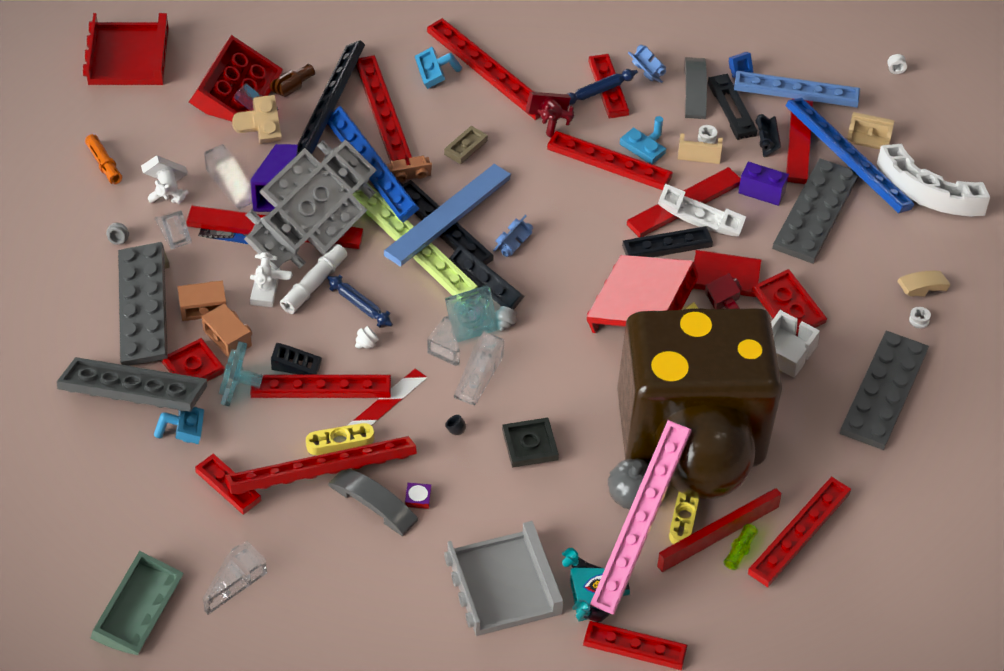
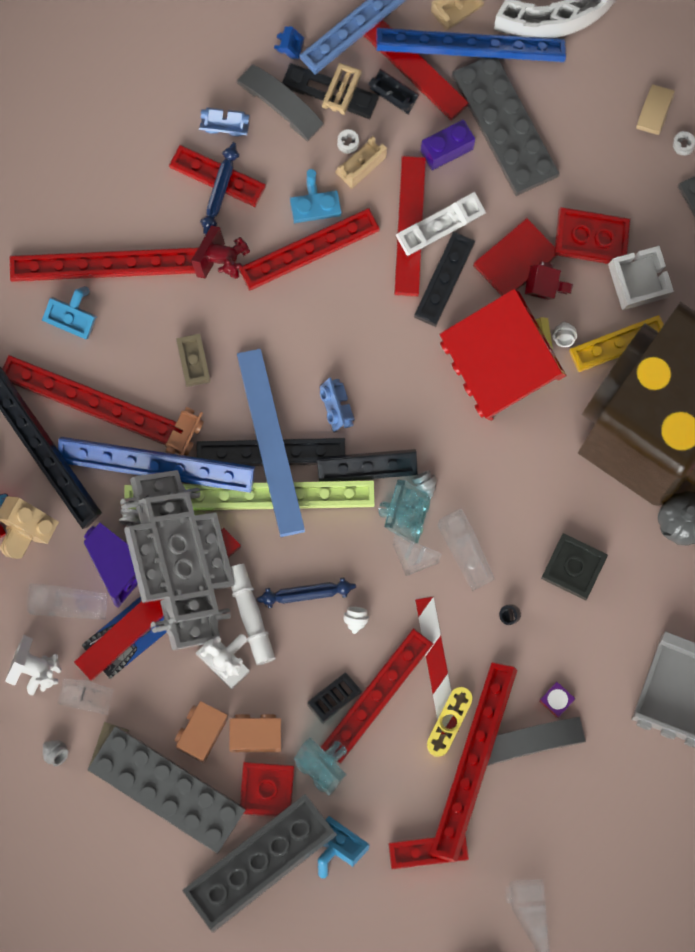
camera: 55 degrees left, 25 degrees up
(738, 106) = (335, 106): none -> tan tile

